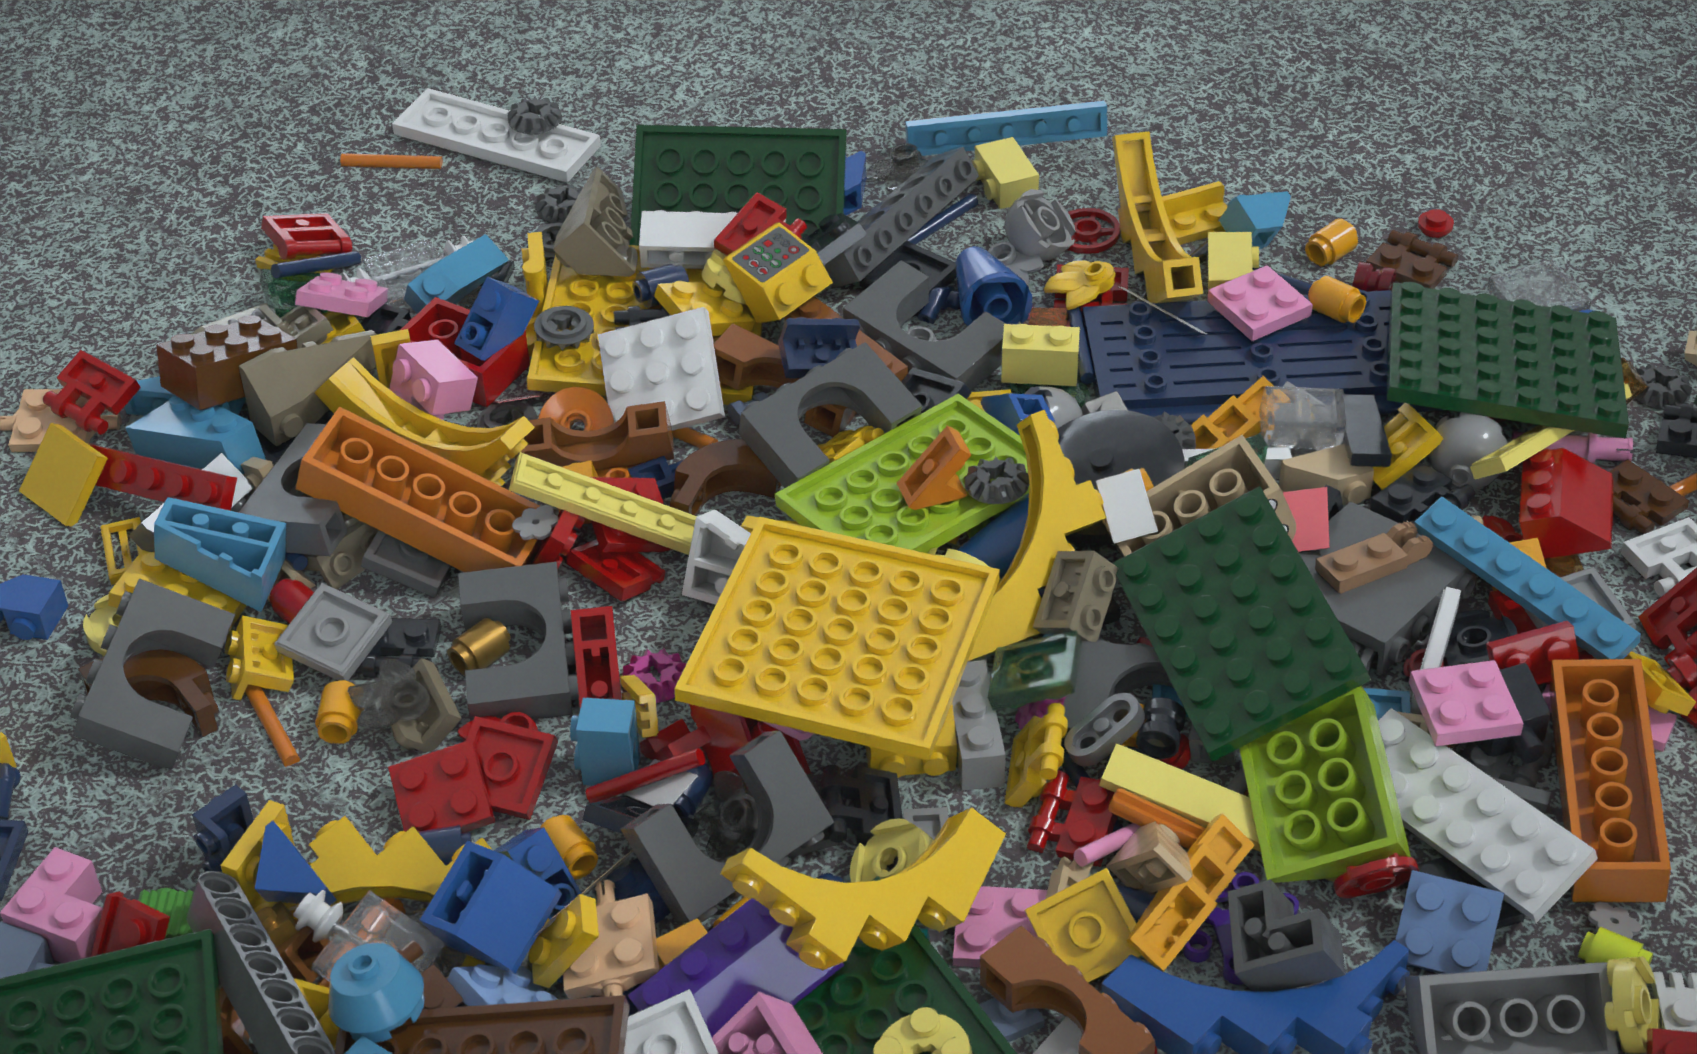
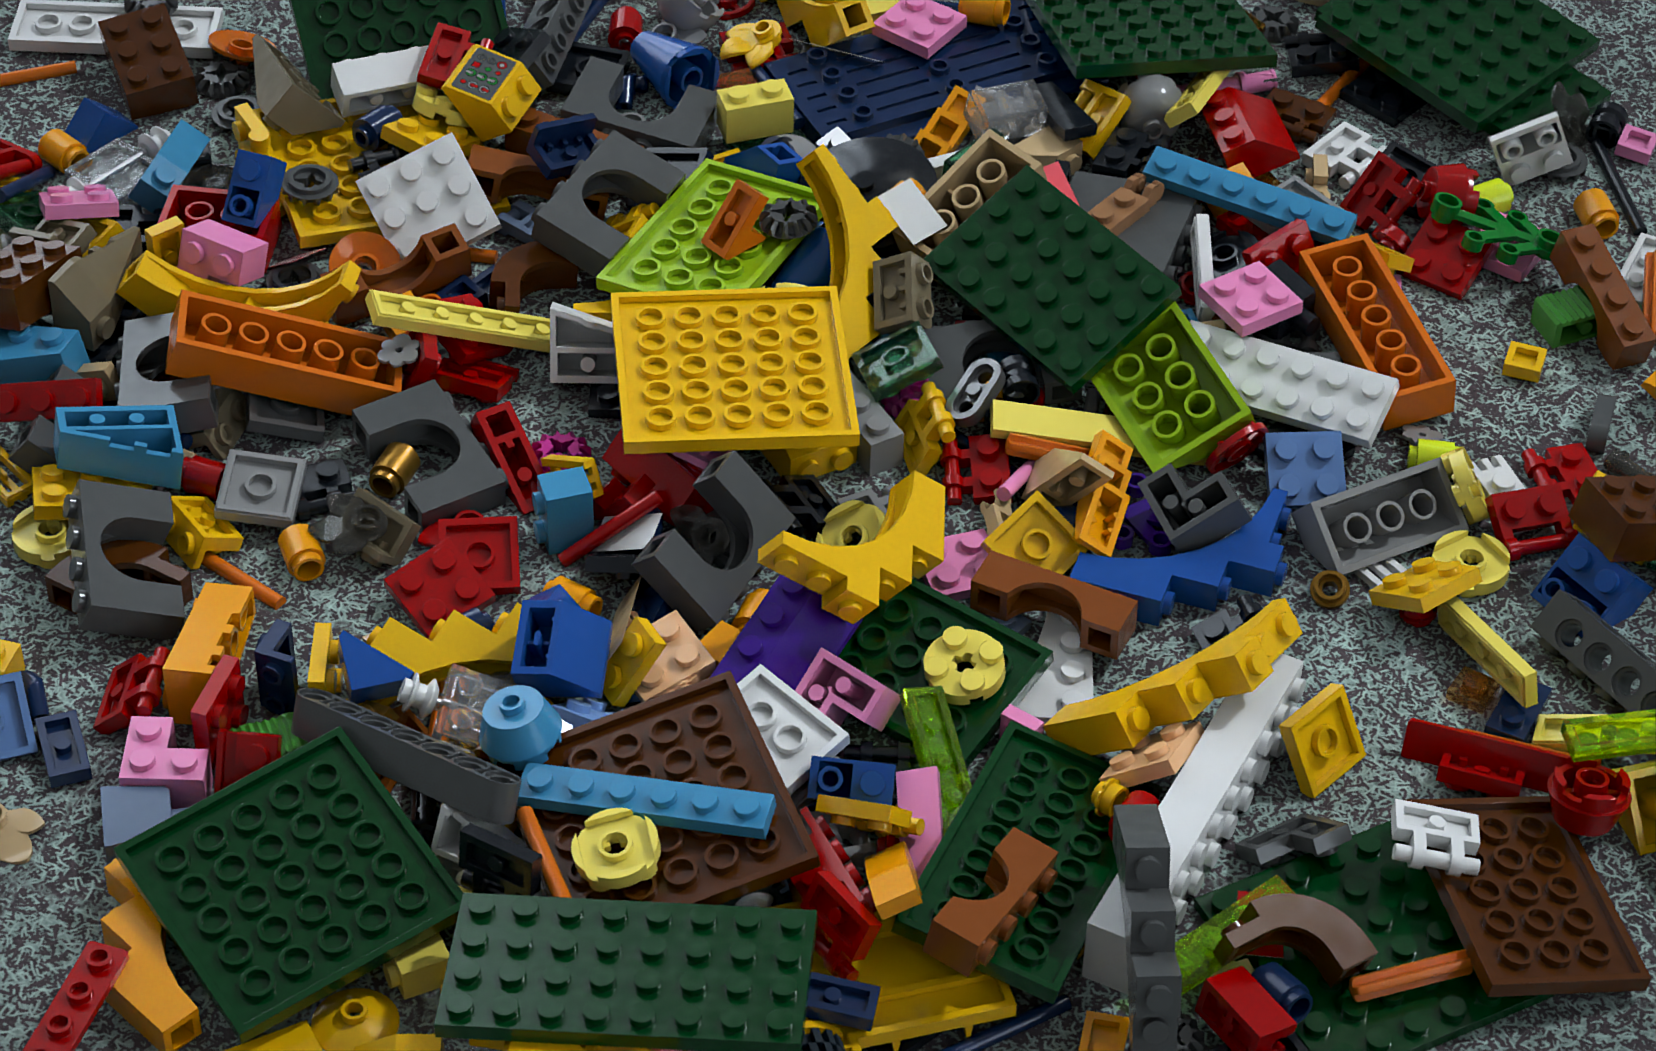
camera: 25 degrees left, 0 degrees up
(87, 816) = (131, 691): none -> red plate
(143, 860) = (219, 705): none -> red plate
(152, 814) = (214, 627): none -> light orange wedge
(372, 237) = (60, 149): none -> light orange brick
(421, 221) = (98, 125): none -> blue slope
(495, 172) = (148, 62): none -> reddish brown brick
(578, 169) = (234, 45): none -> orange dish
(967, 234) = (624, 27): none -> red brick
(1626, 577) = (1318, 174): none -> tan plate

